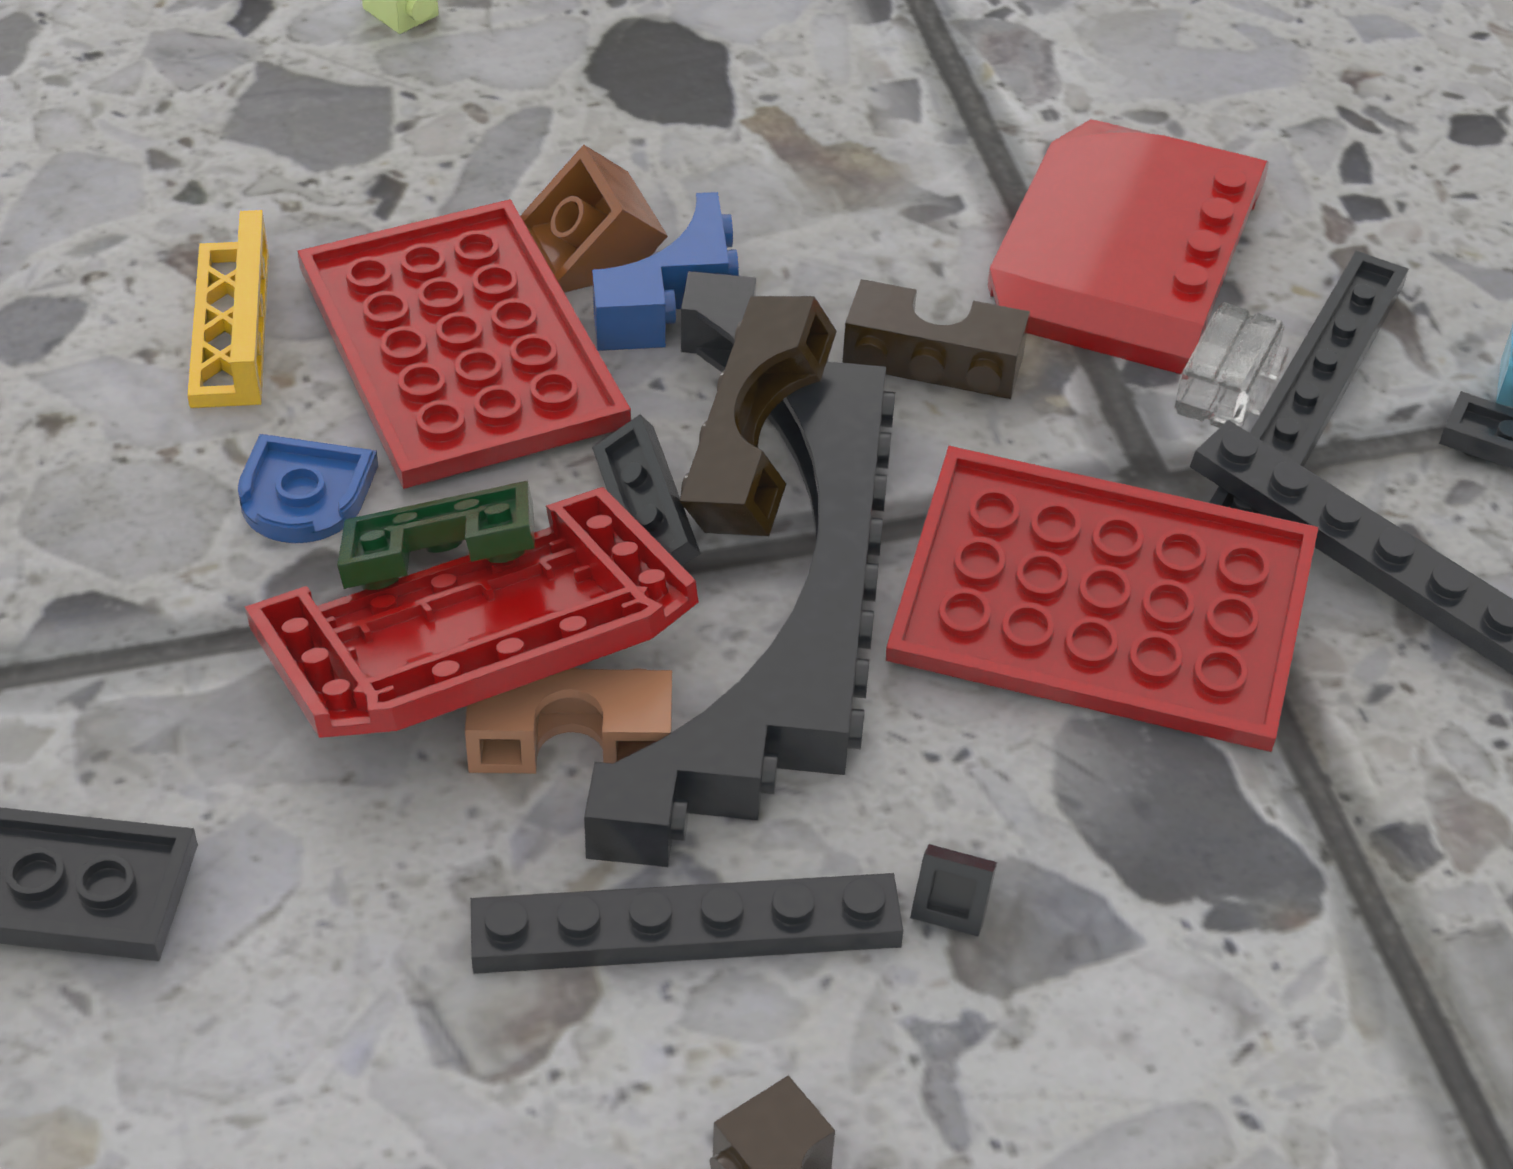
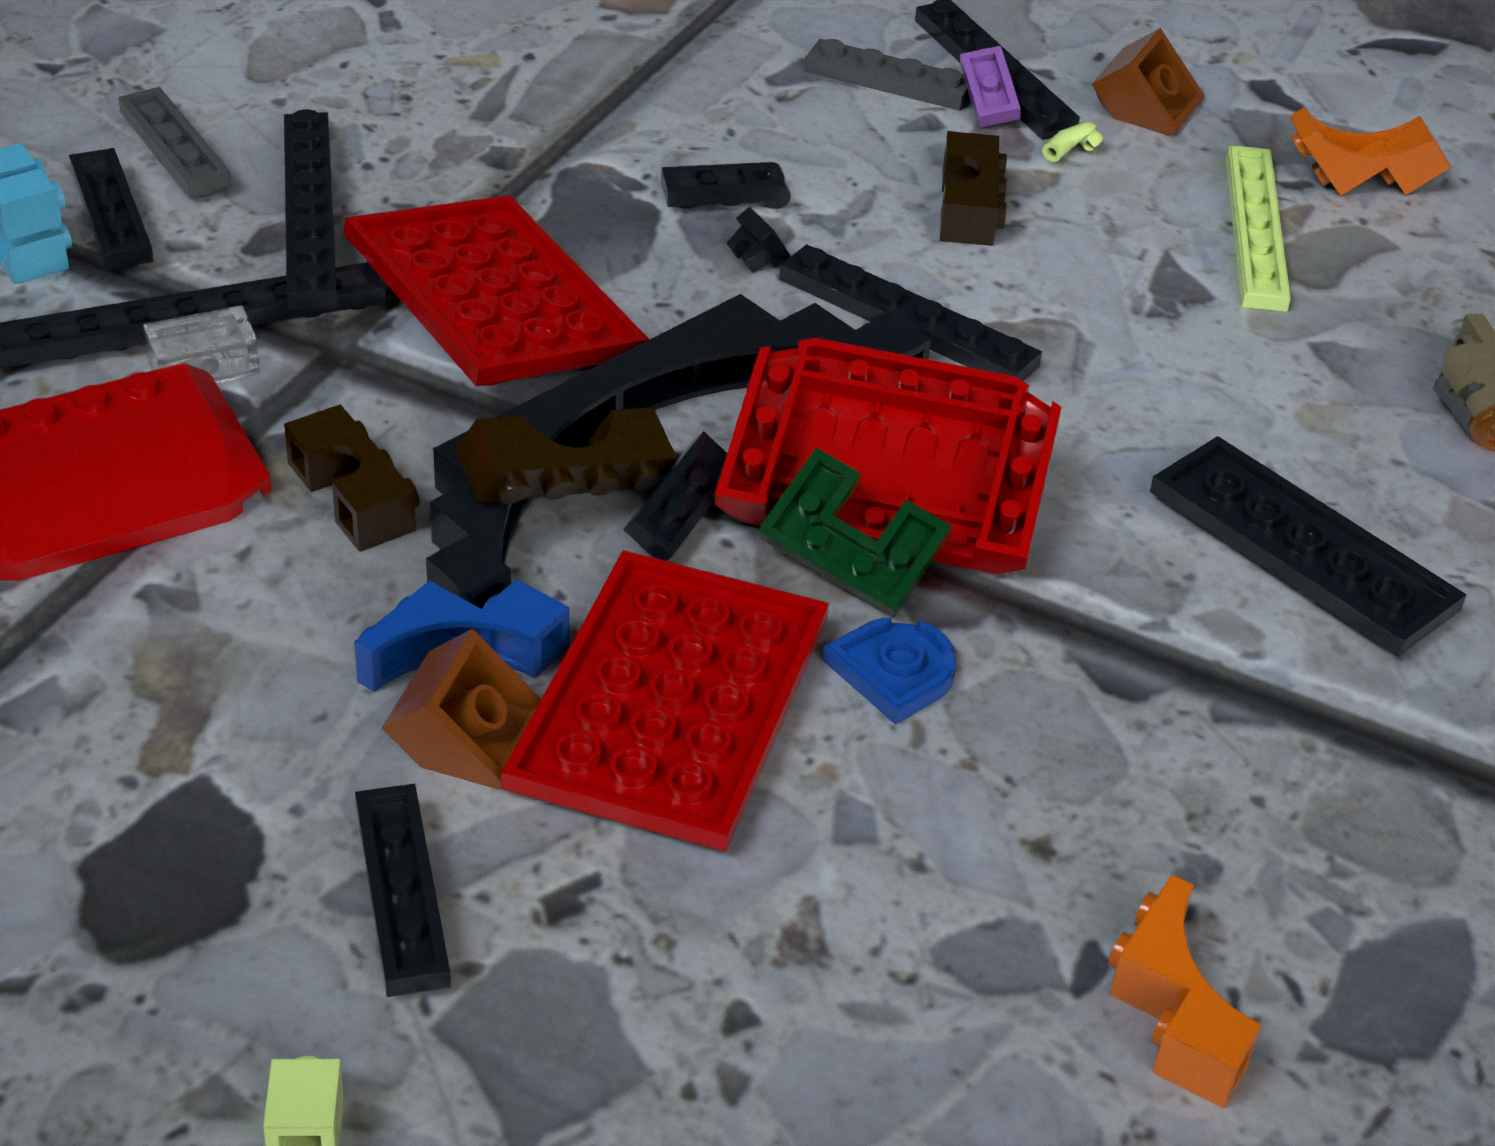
camera: 140 degrees left, 5 degrees down
(243, 321) = (808, 818): yellow fence -> none
(493, 116) = (402, 891): none -> black plate
(1107, 965) = (725, 185): none -> black plate

